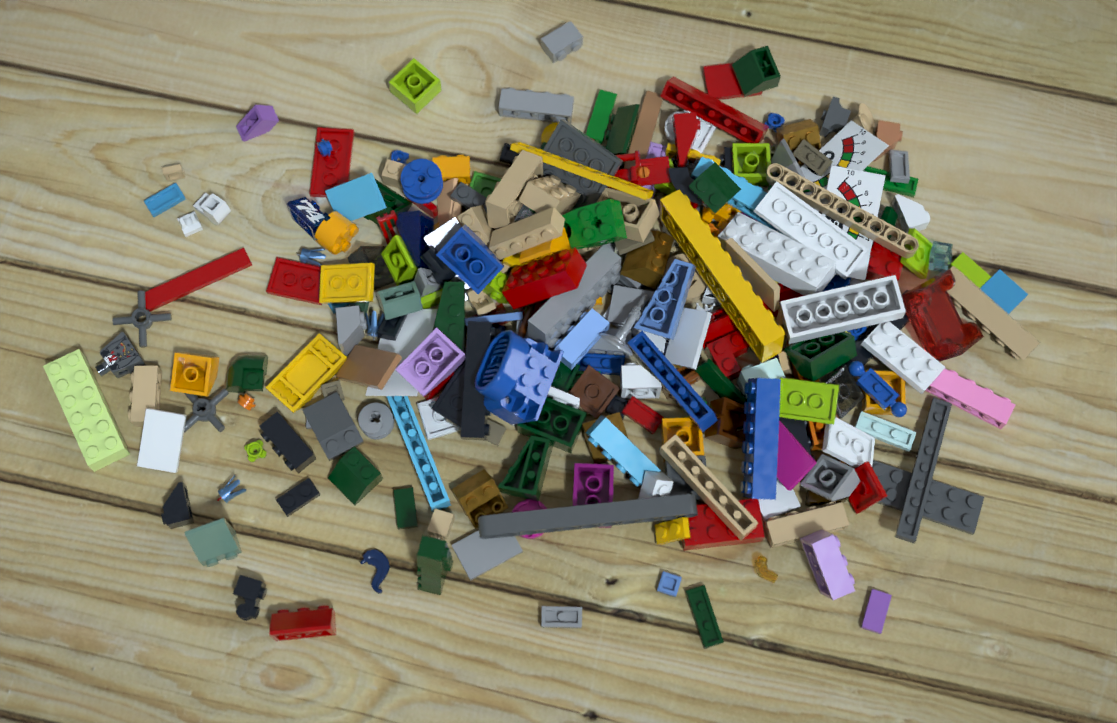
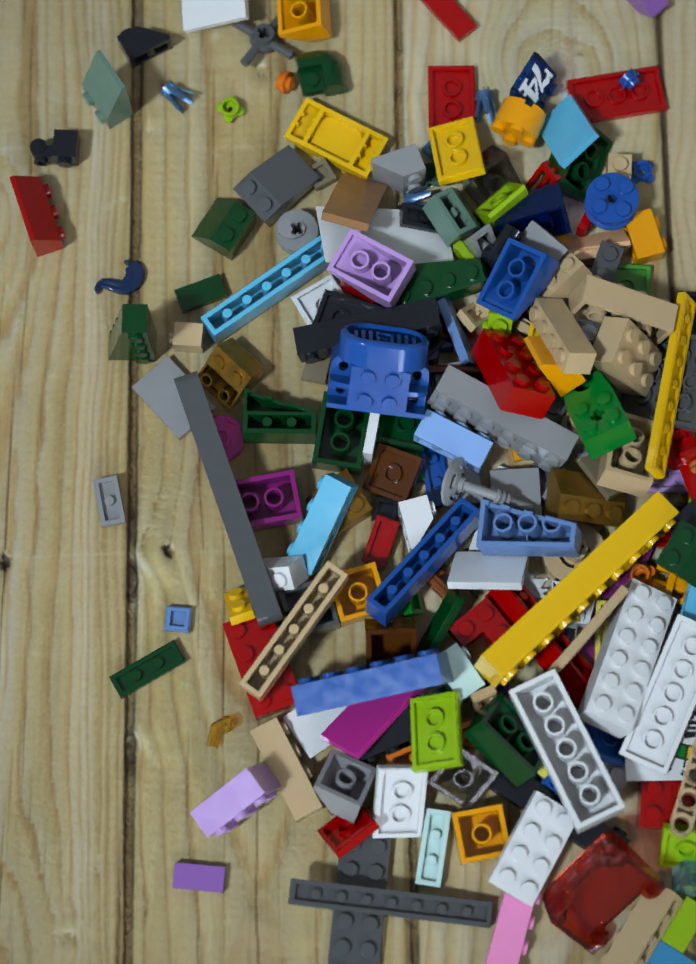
camera: 80 degrees right, 5 degrees up
(287, 443) = (246, 140): black brick -> none
(298, 497) = (186, 171): black plate -> none
(877, 389) = (476, 820): blue plate -> none

